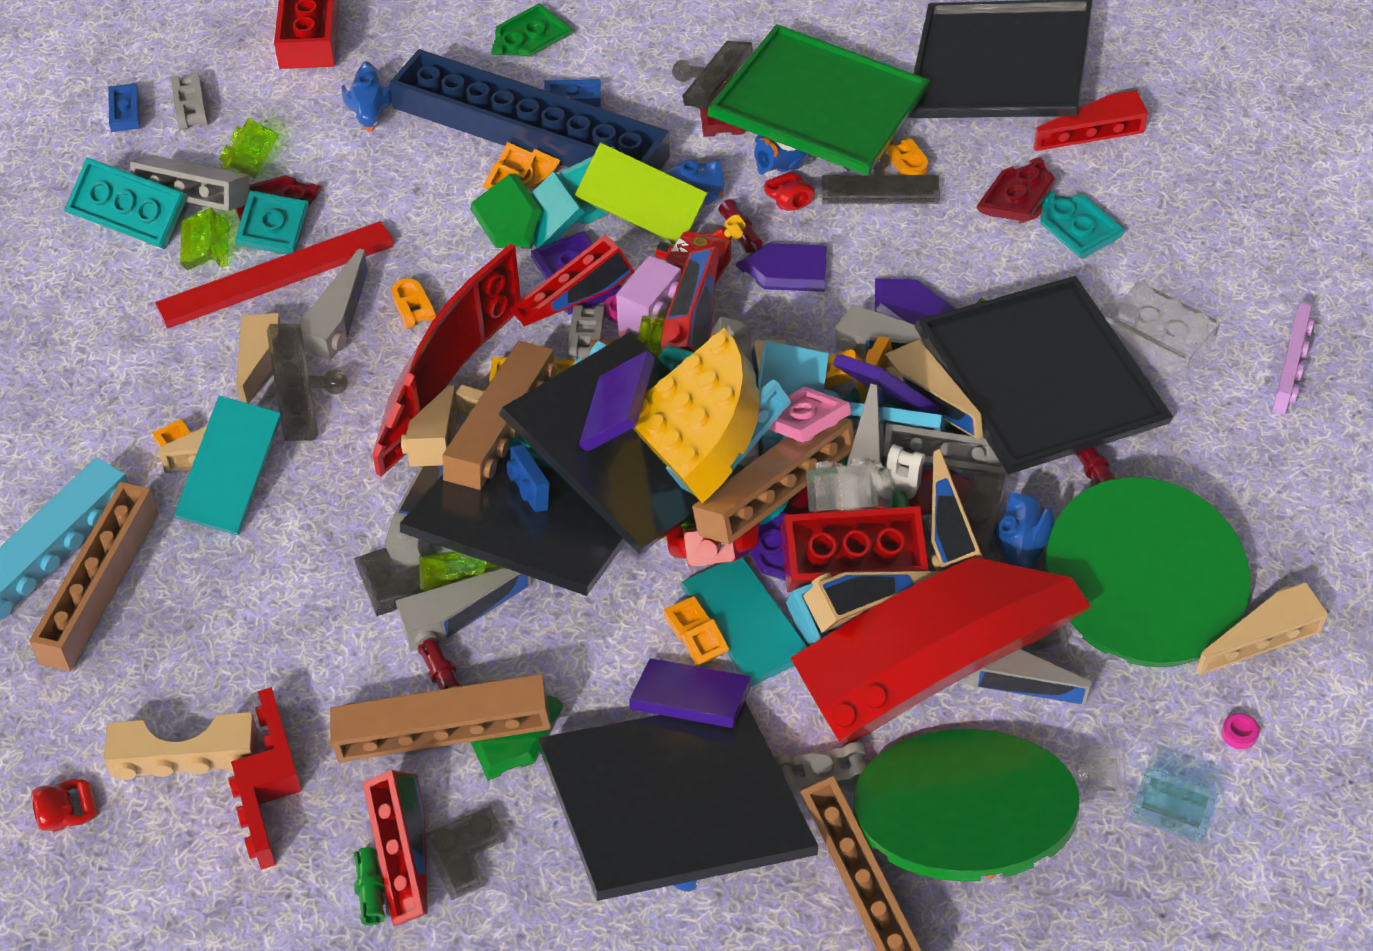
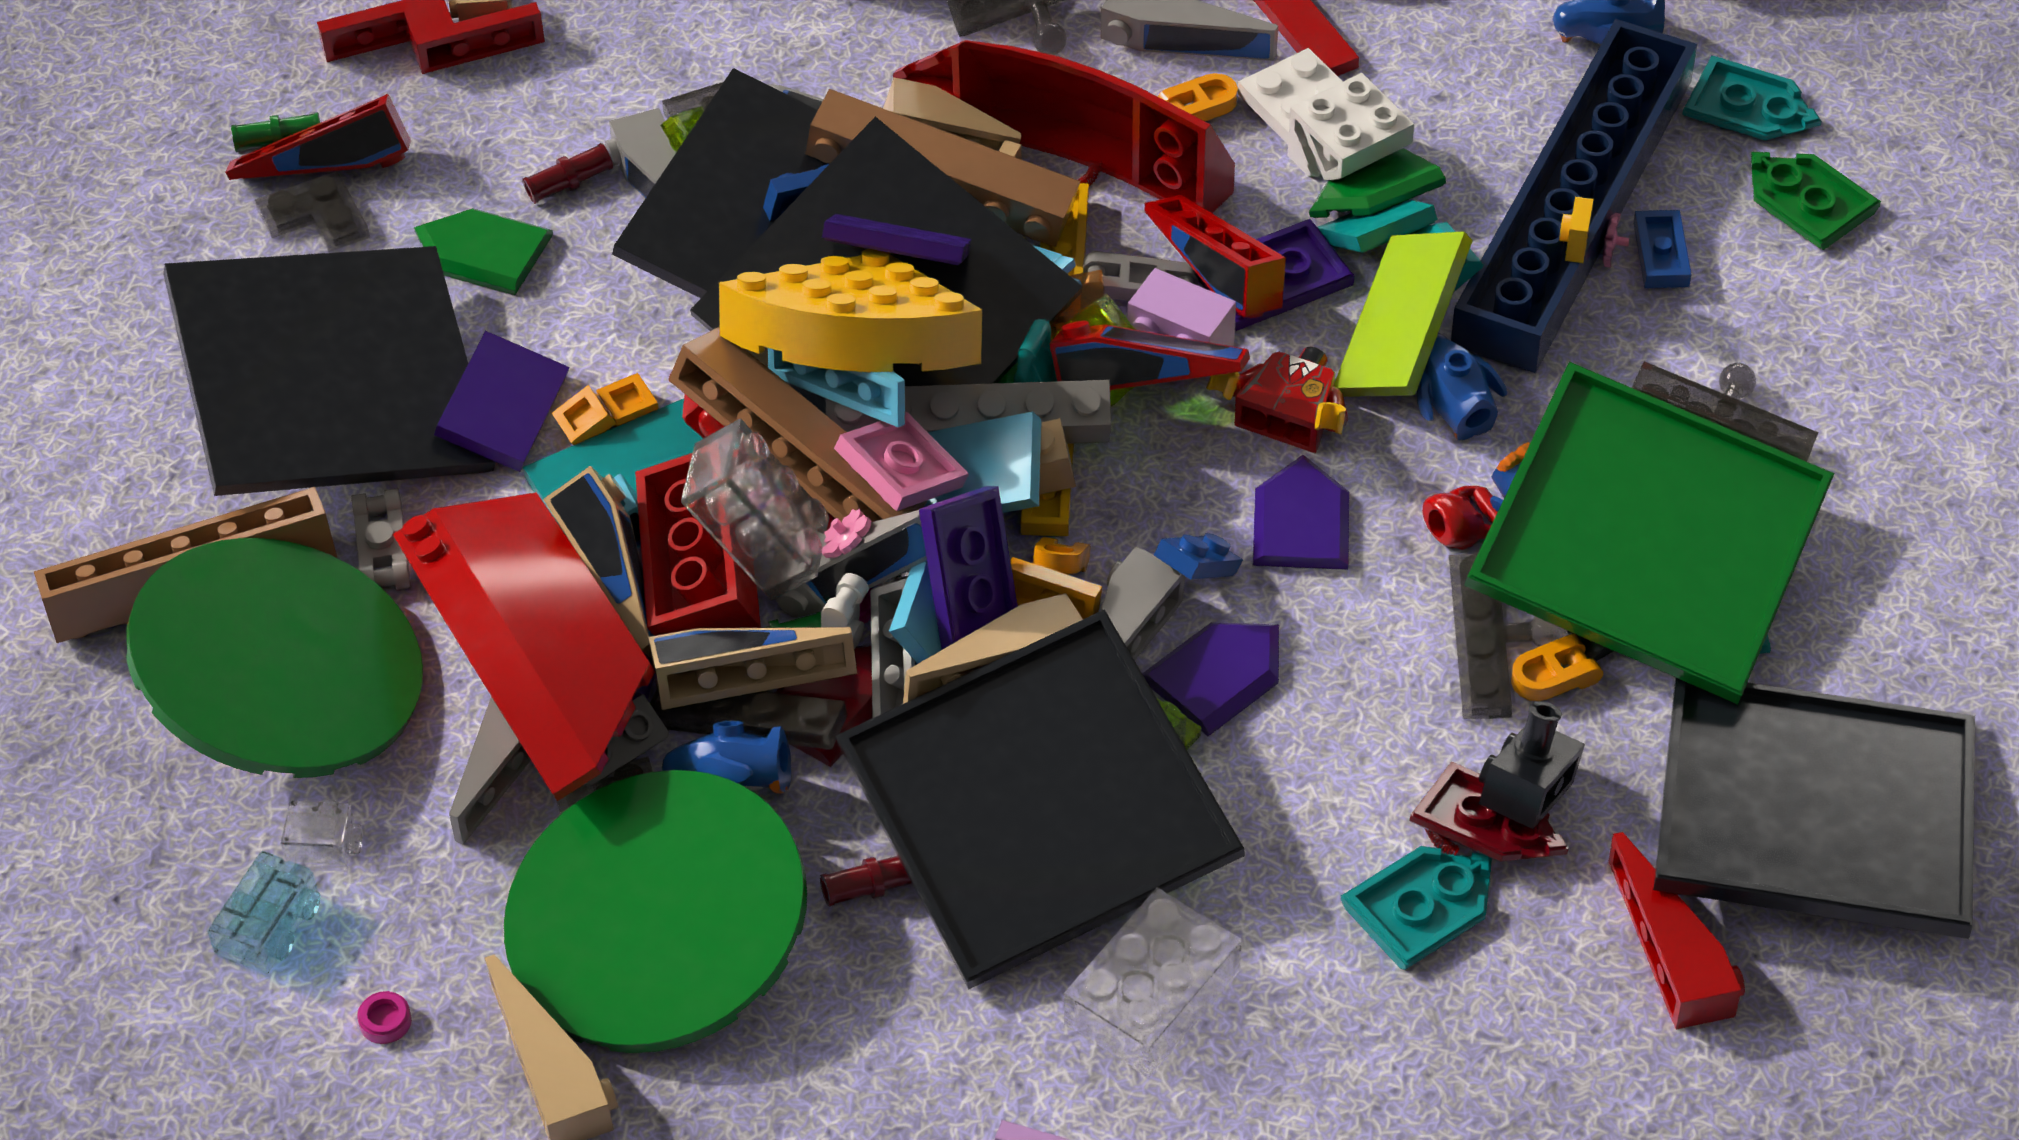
camera: 90 degrees right, 0 degrees up
(439, 718) = (486, 168): medium nougat brick -> none
(449, 230) = (1324, 120): none -> white piece
(451, 43) = (1749, 101): none -> teal tile
(468, 360) = (1095, 167): none -> red leg
(530, 167) = (1479, 195): light orange brick -> none
(592, 99) = (1576, 229): none -> yellow plate
(748, 233) = (1376, 453): dark red pin -> none
(838, 301) = (1199, 556): none -> blue plate
(863, 444) = (845, 535): none -> bright pink plant
(994, 161) = (1531, 768): none -> black brick

